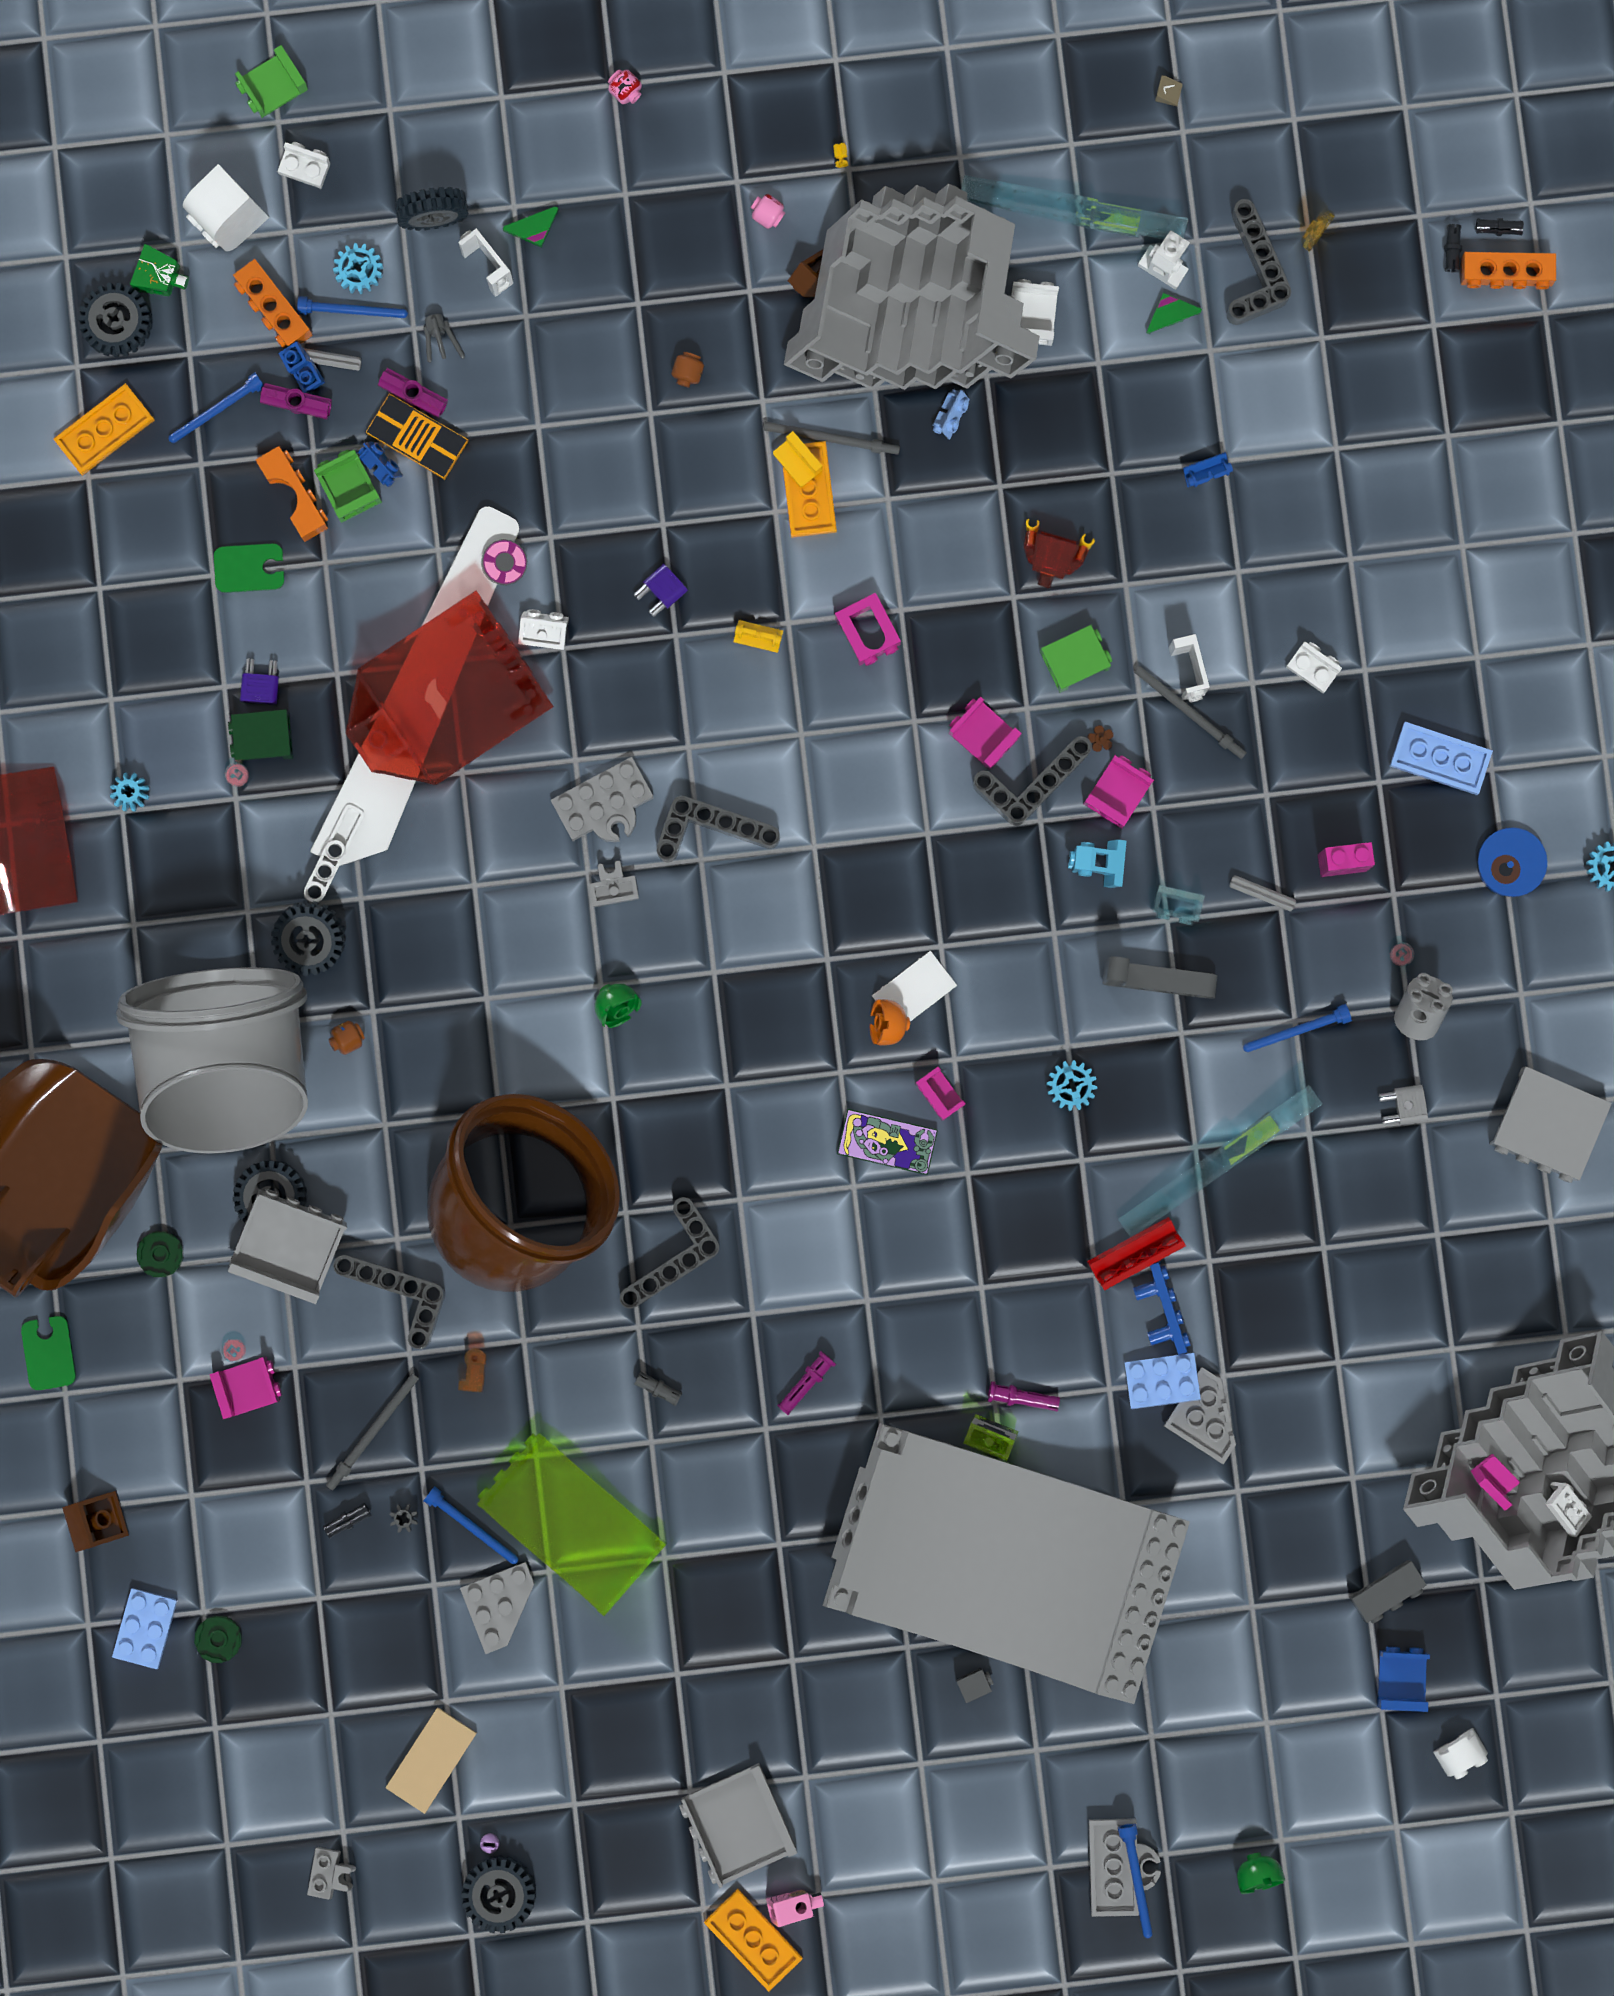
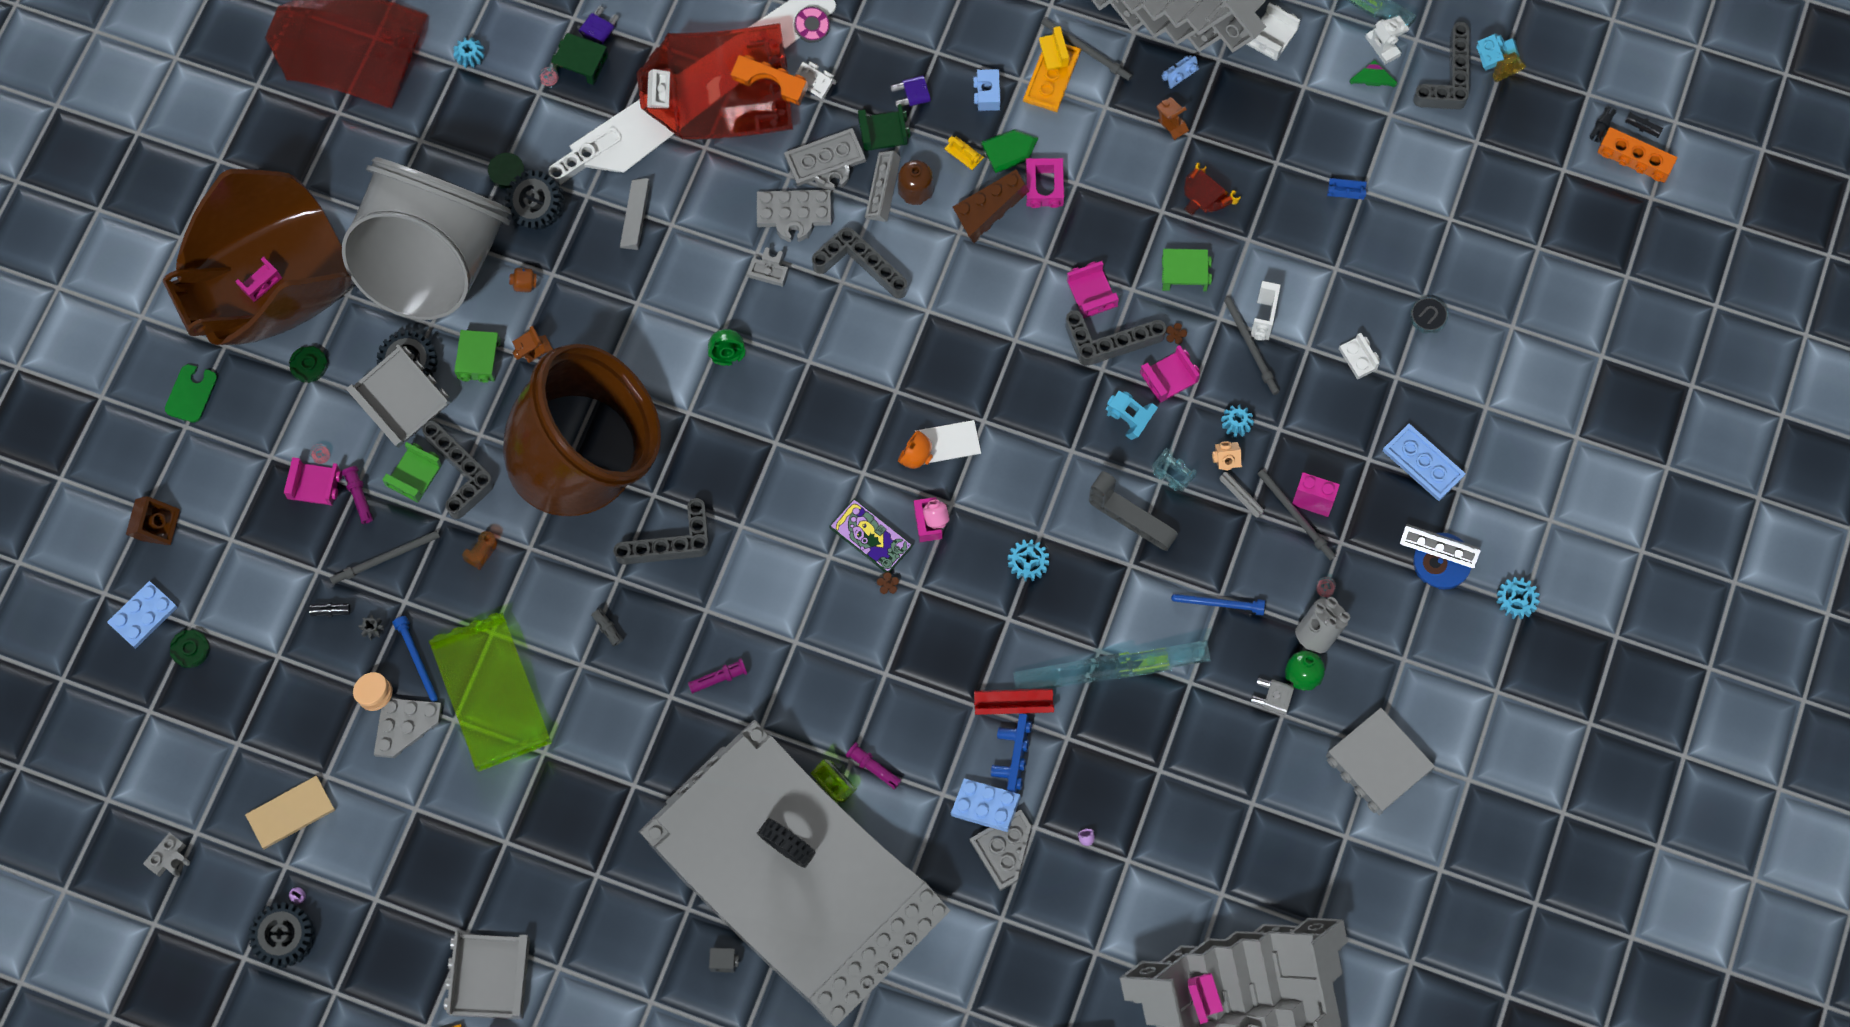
camera: 30 degrees right, 15 degrees down
(51, 1187) = (260, 281): none -> dark pink panel
(252, 913) = (504, 169): none -> dark green tile
(298, 1372) = (355, 486): none -> magenta pin
(345, 1153) = (476, 355): none -> bright green panel
(349, 1321) = (413, 472): none -> bright green panel
(381, 741) = (658, 89): none -> white slope
(400, 1111) = (531, 345): none -> dark orange piece
(427, 894) = (635, 214): none -> light grey slope
(446, 1588) = (372, 691): none -> light nougat head
(530, 662) = (748, 71): none -> orange arch
(608, 722) = (826, 160): none -> light grey plate
(653, 652) = (883, 129): none -> dark green panel
(687, 721) = (883, 186): none -> light grey slope
(724, 713) = (915, 182): none -> reddish brown cylinder
(745, 533) = (989, 81): none -> light blue brick
(806, 606) = (1009, 149): none -> green tile
(819, 696) = (990, 204): none -> reddish brown wedge
(932, 1186) = (888, 583): none -> reddish brown plant
(948, 1086) = (936, 514): none -> bright pink head
(972, 479) = (1169, 118): none -> dark orange piece
(986, 1542) = (786, 842): none -> black tyre
(1219, 819) = (1239, 415): none -> medium azure gear
(1228, 858) = (1227, 455): none -> light nougat brick
(1284, 1360) = (1086, 837): none -> lavender hinge
(1293, 221) = (1493, 48): none -> medium azure tile
(1366, 579) = (1429, 315): none -> black tile
(1373, 907) = (1320, 542): none -> dark grey bar
(1425, 1062) = (1305, 670): none -> green cylinder
(1503, 847) = (1440, 546): none -> slope

